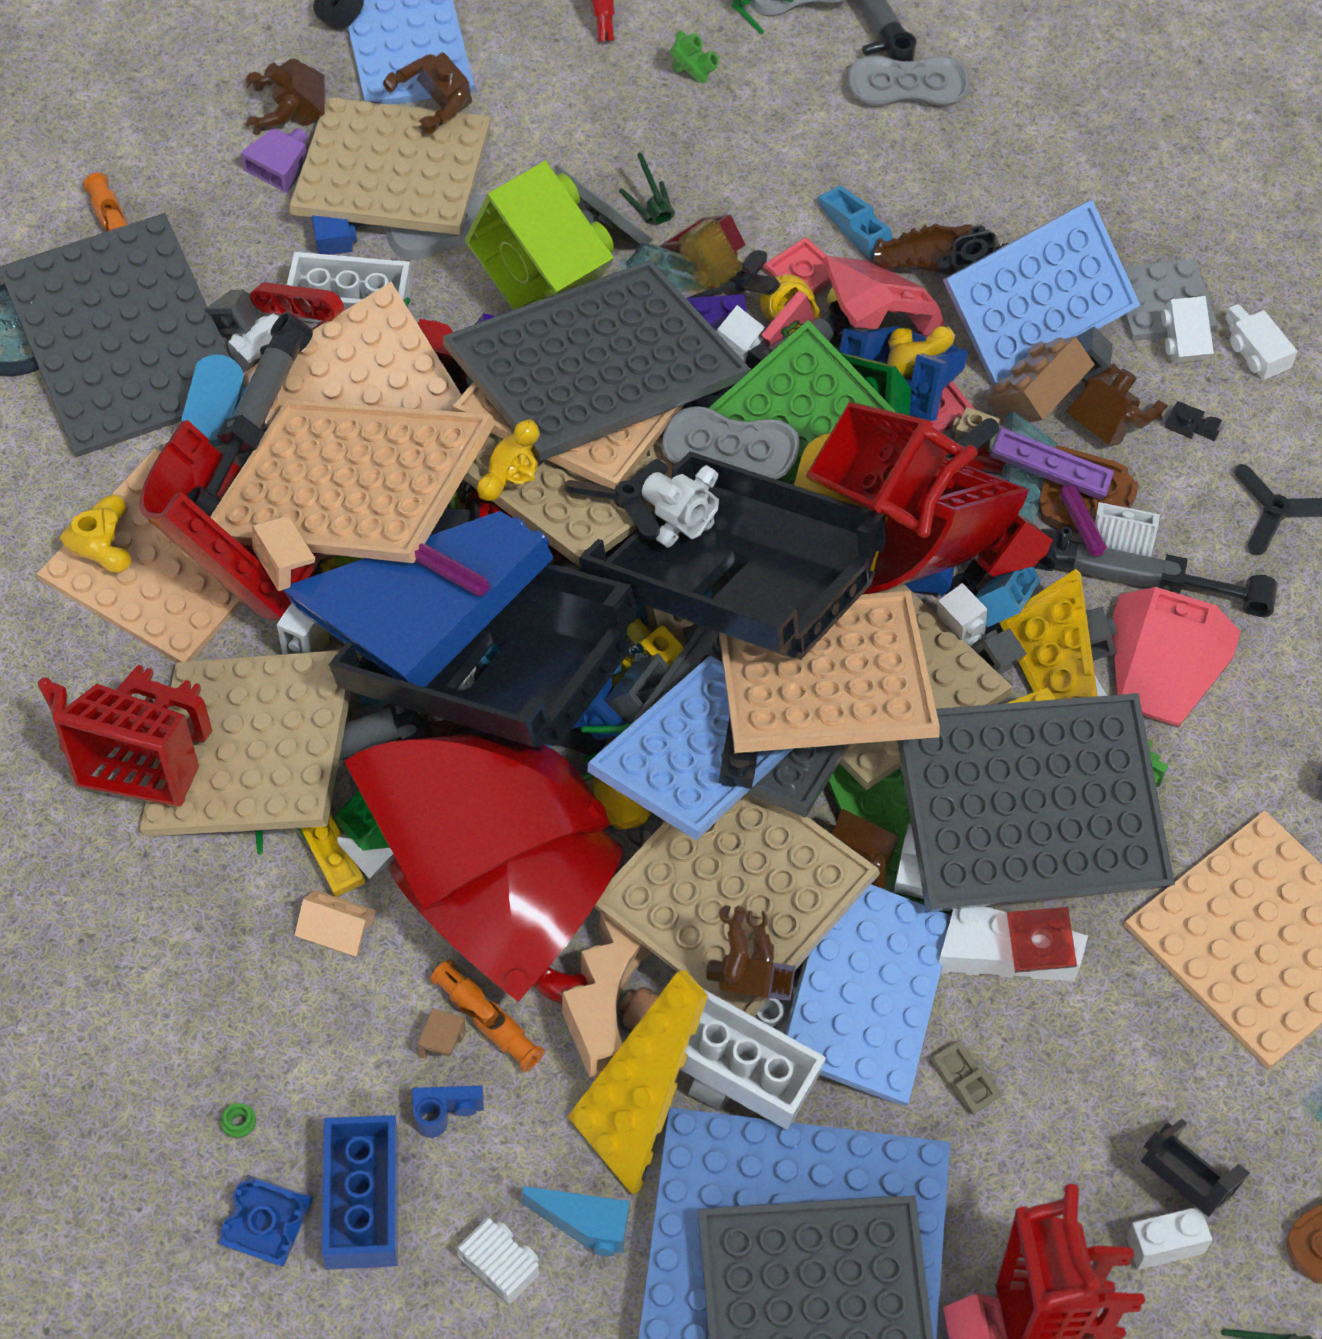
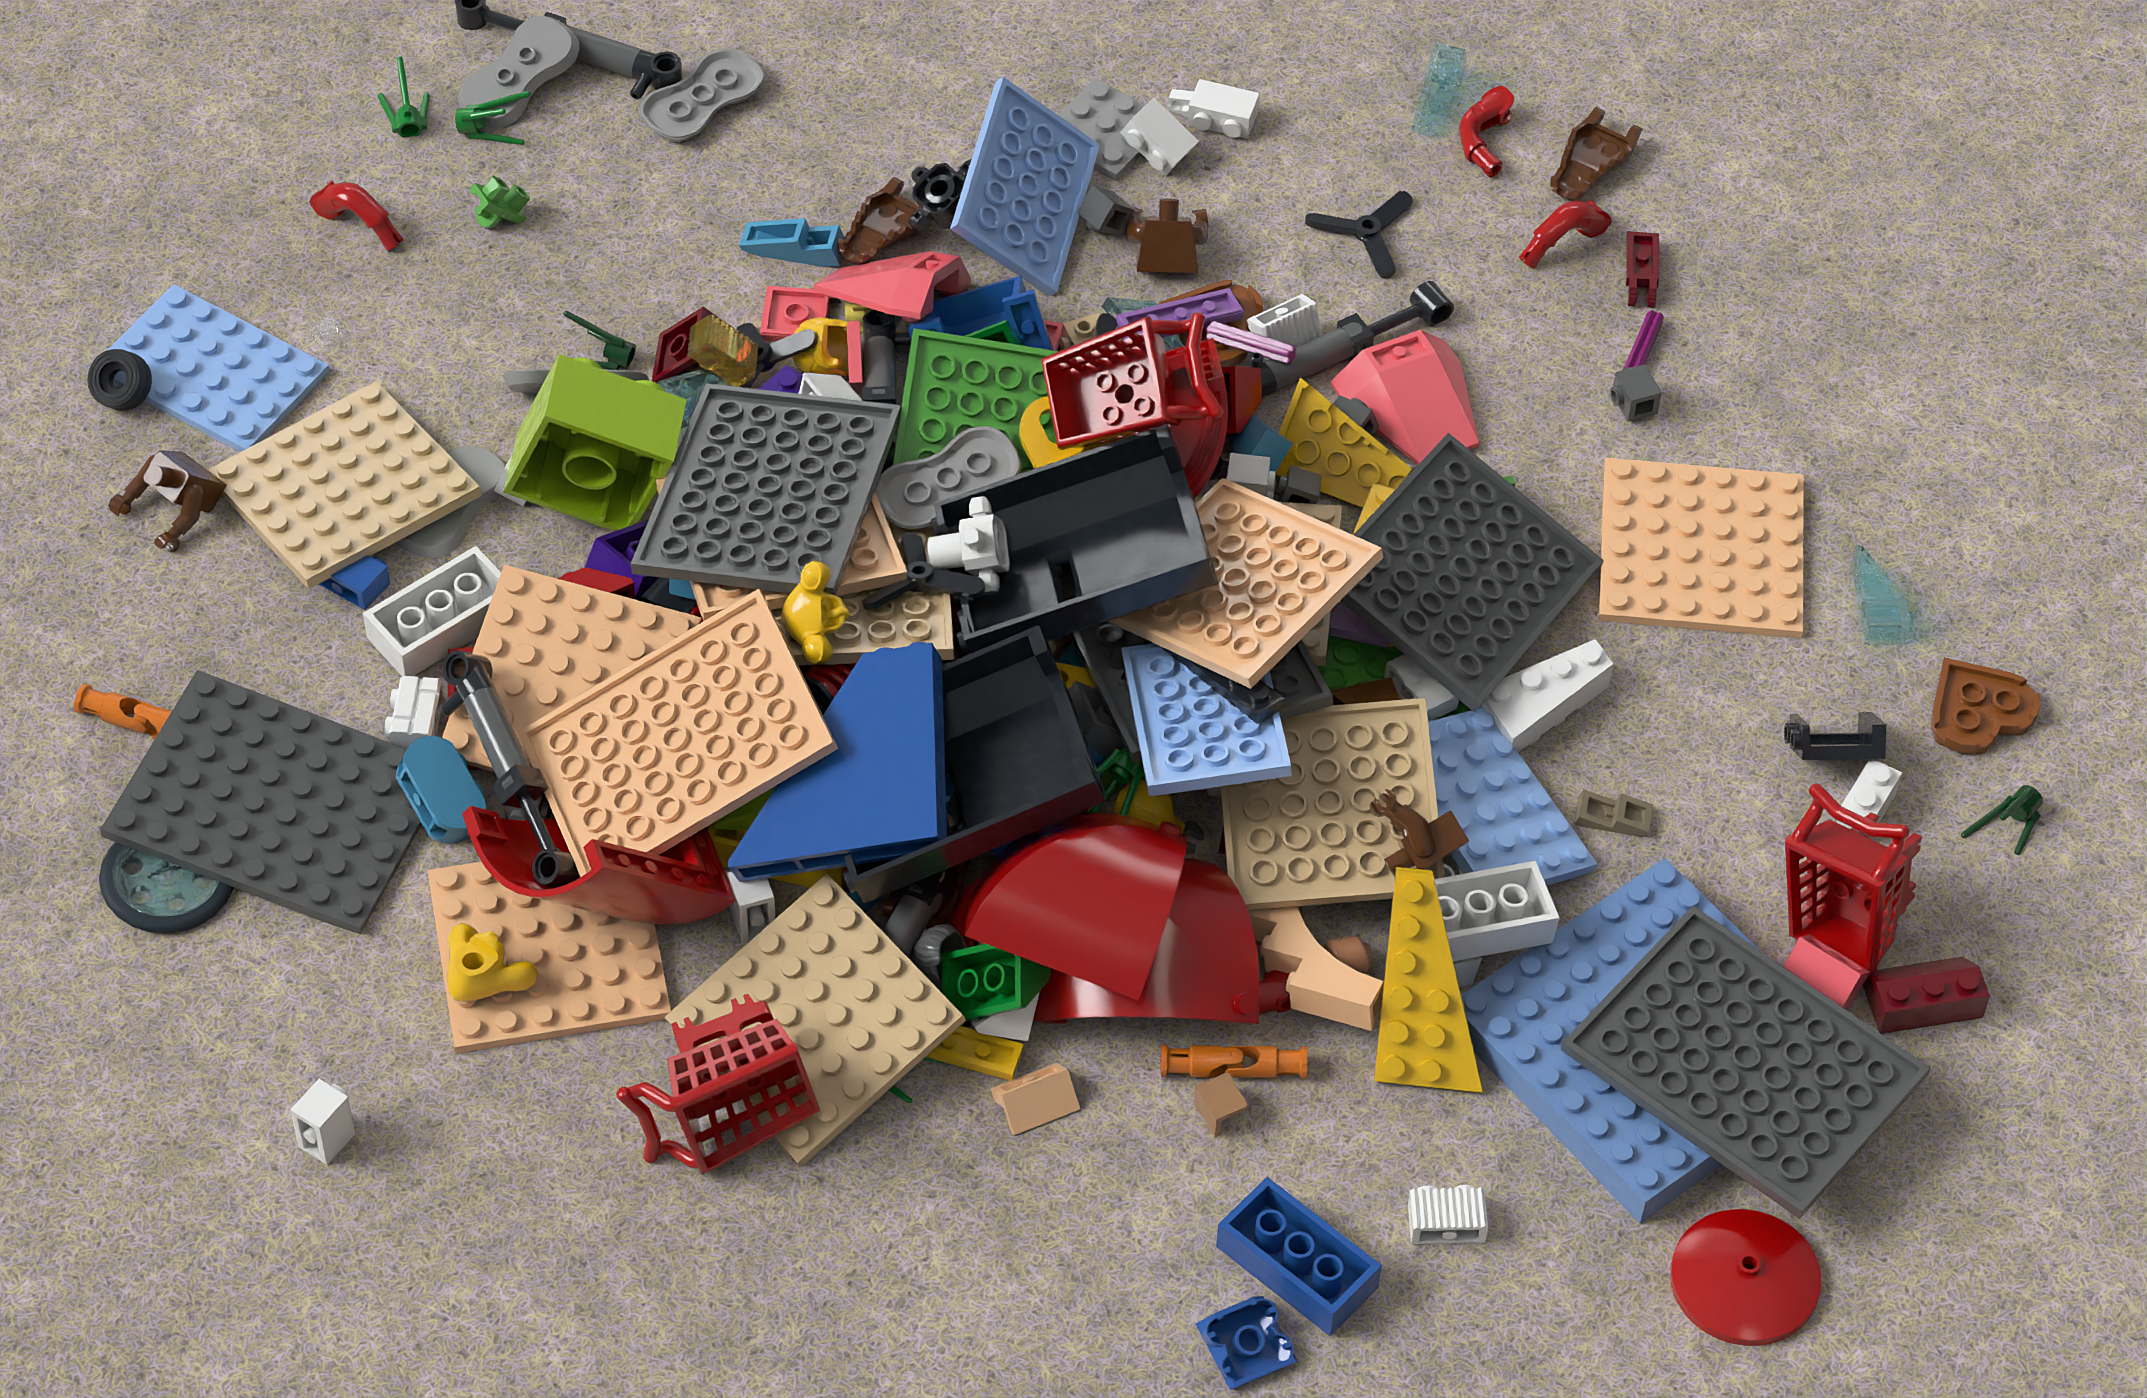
camera: 45 degrees left, 5 degrees down
(233, 312) = (363, 706): dark grey slope -> none
(234, 1111) = (1143, 1286): bright green plate -> none
(276, 157) = (229, 553): medium lavender torso -> none
(280, 549) = (698, 835): light nougat panel -> none
(296, 302) = (463, 630): red beam -> none
(441, 1100) = (1281, 1147): blue plate -> none
(442, 82) = (315, 379): reddish brown torso -> none
(452, 570) = (881, 726): magenta axle -> none
(590, 1220) = (1472, 1135): dark azure slope -> none
(904, 350) = (985, 307): yellow head -> none
(1041, 379) = (1098, 258): medium nougat brick -> none
(1049, 922) = (1574, 647): clear red piece -> none
(1190, 420) = (1233, 212): black plate -> none

